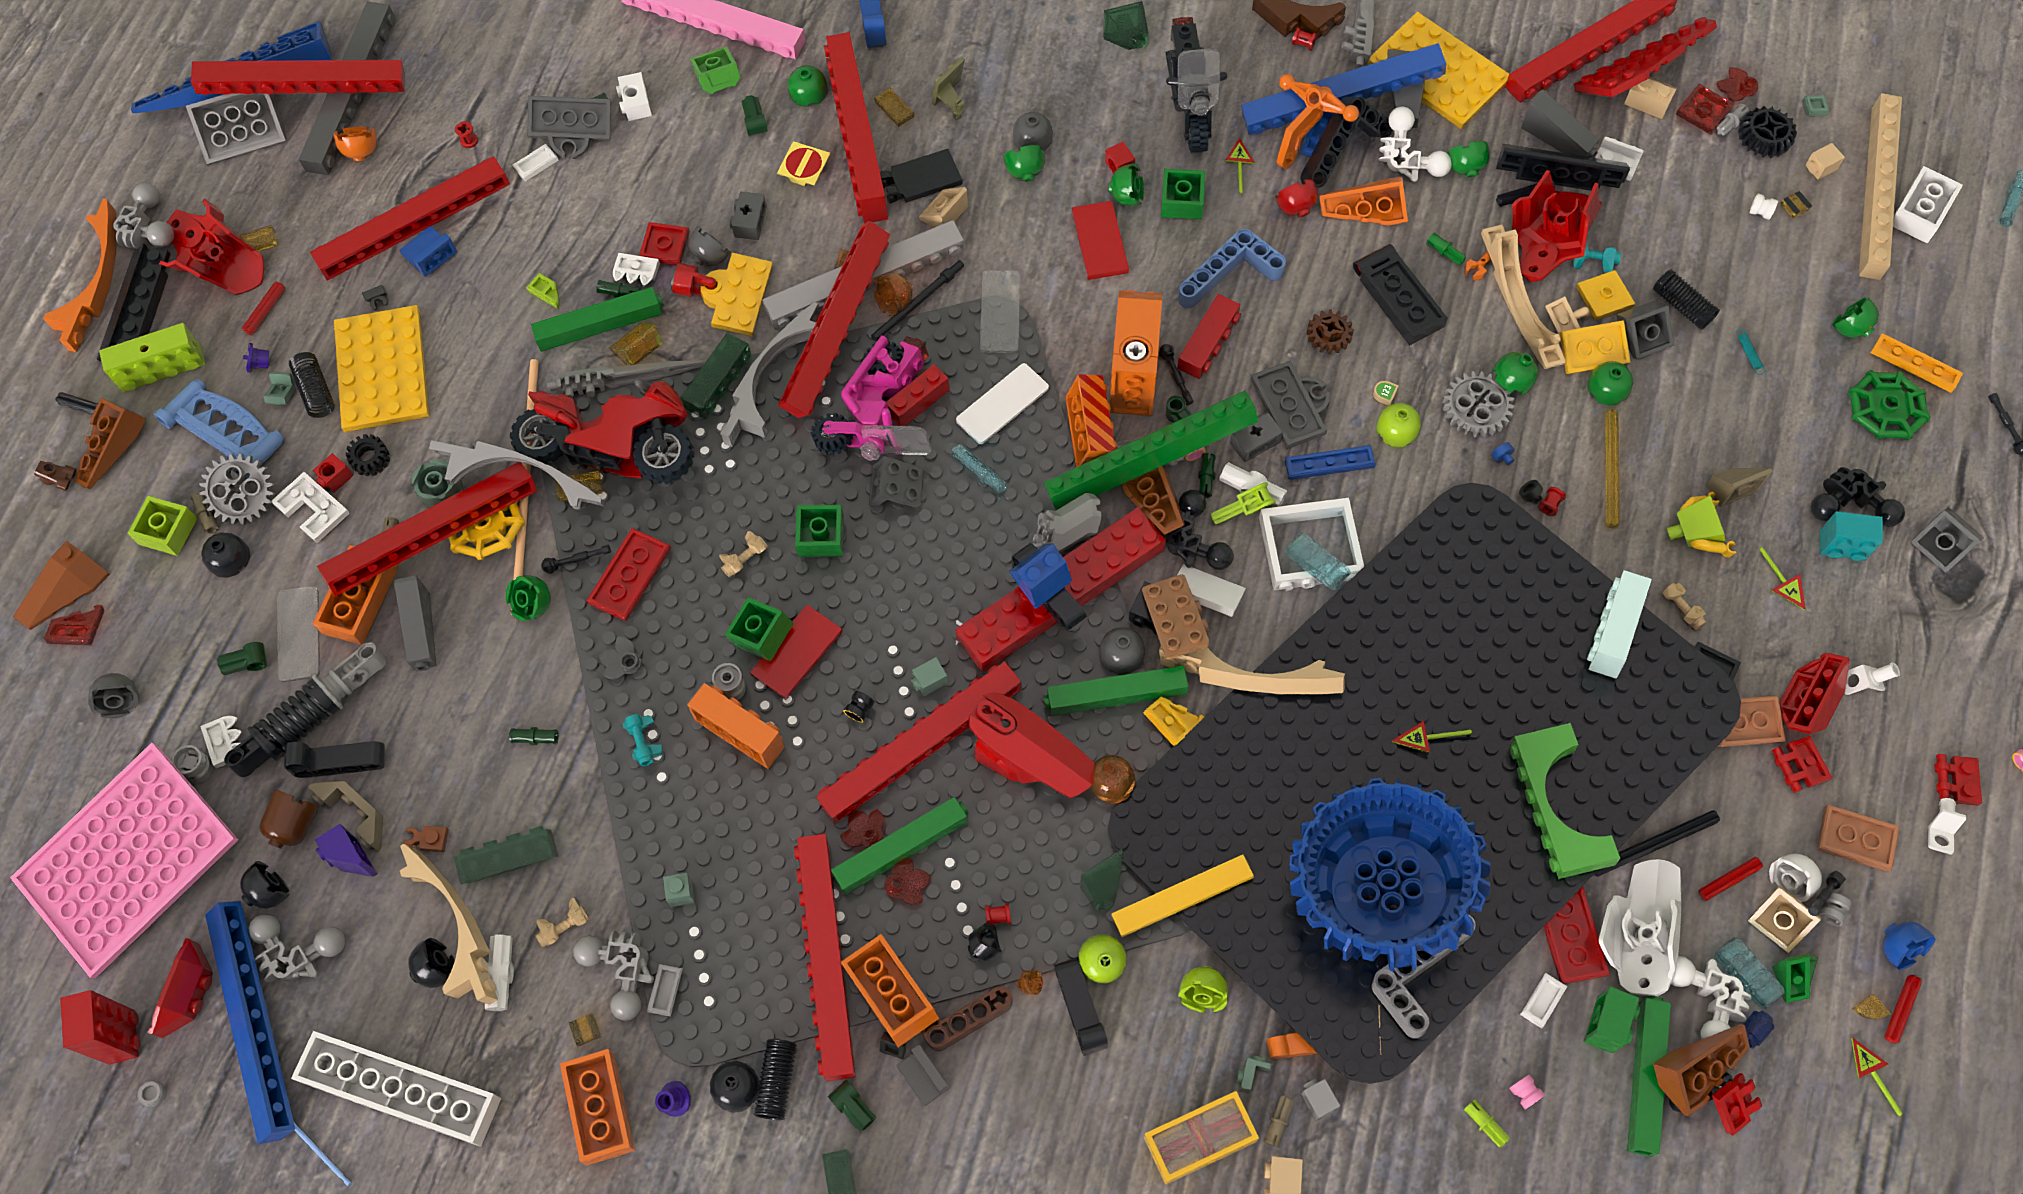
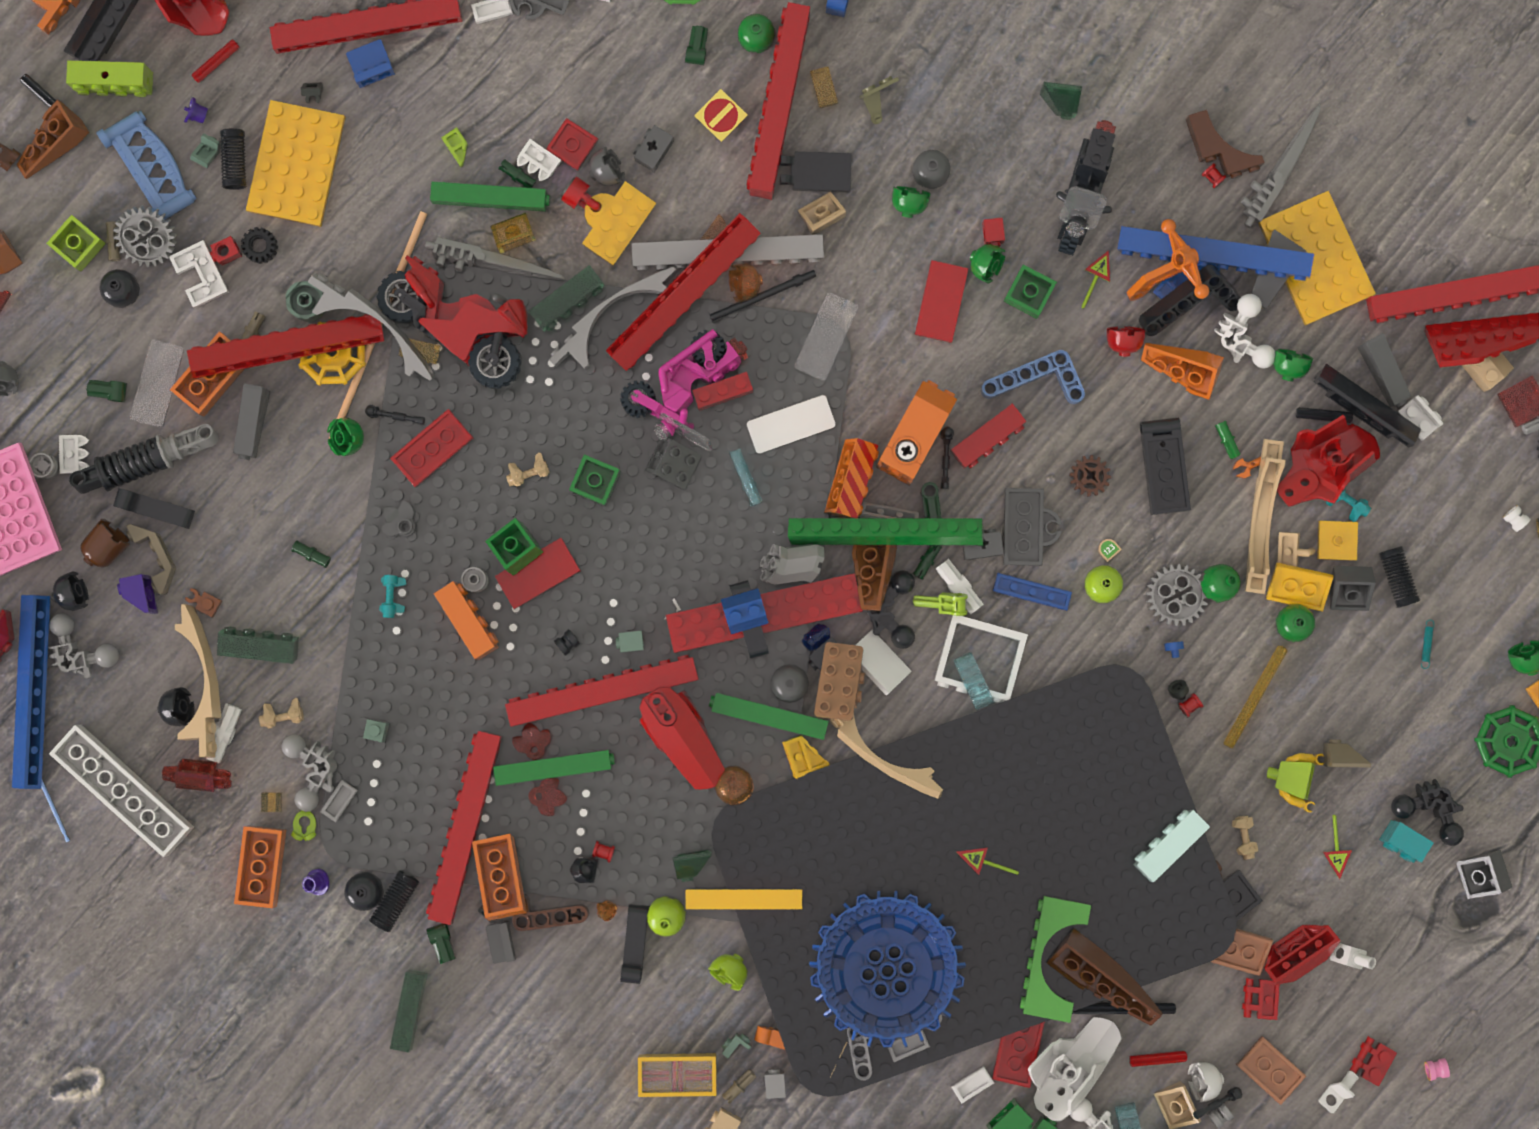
camera: 25 degrees right, 20 degrees up
(483, 1032) = (197, 775): none -> clear red hinge
(644, 1040) = (297, 832): none -> lime piece
(1127, 592) = (816, 637): none -> clear blue brick
(1451, 973) = (914, 1045): none -> light grey tile
(1620, 795) = (1095, 970): none -> reddish brown wedge

